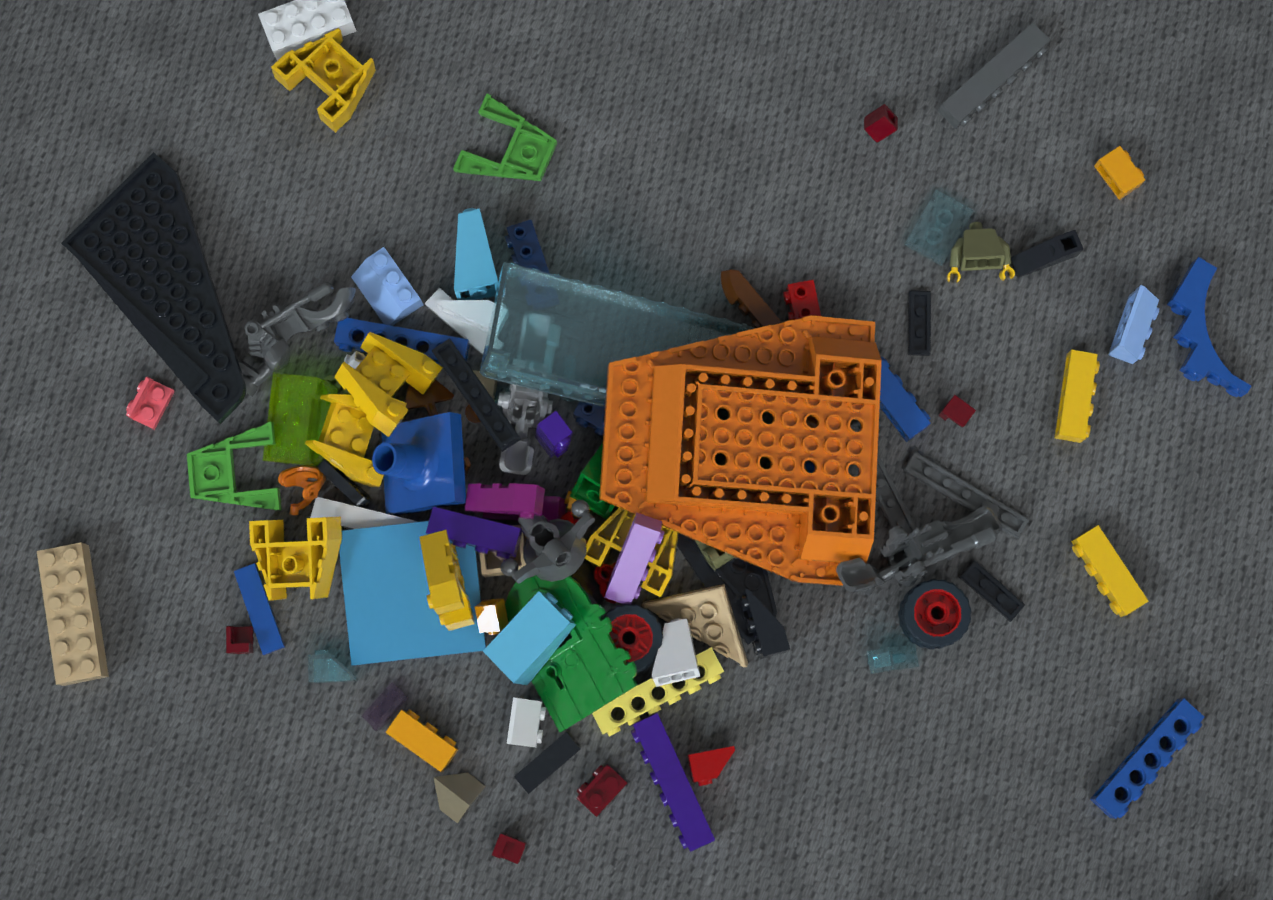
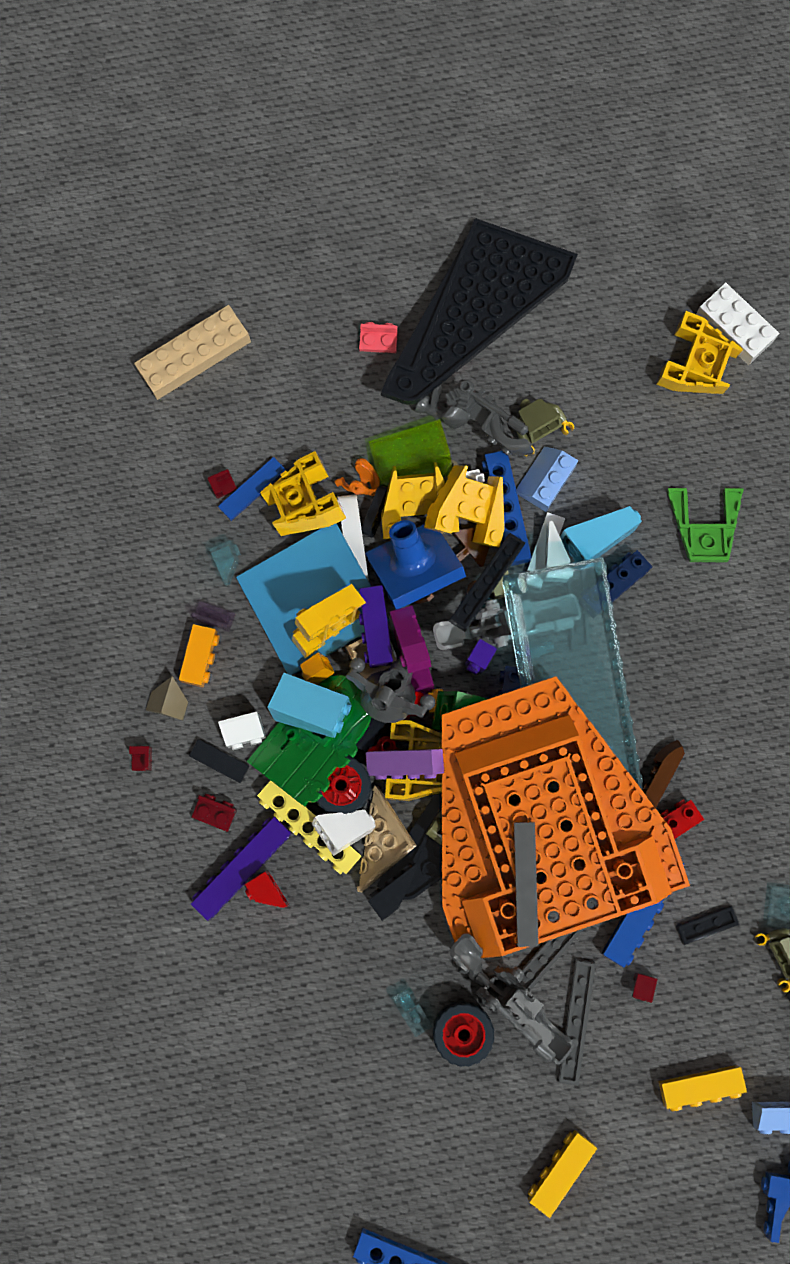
camera: 70 degrees right, 0 degrees up
(213, 471) = (342, 409): bright green wing -> none
(321, 265) = (541, 420): none -> olive torso
(811, 483) = (526, 884): none -> dark grey tile
(992, 591) = (504, 1076): black tile -> none

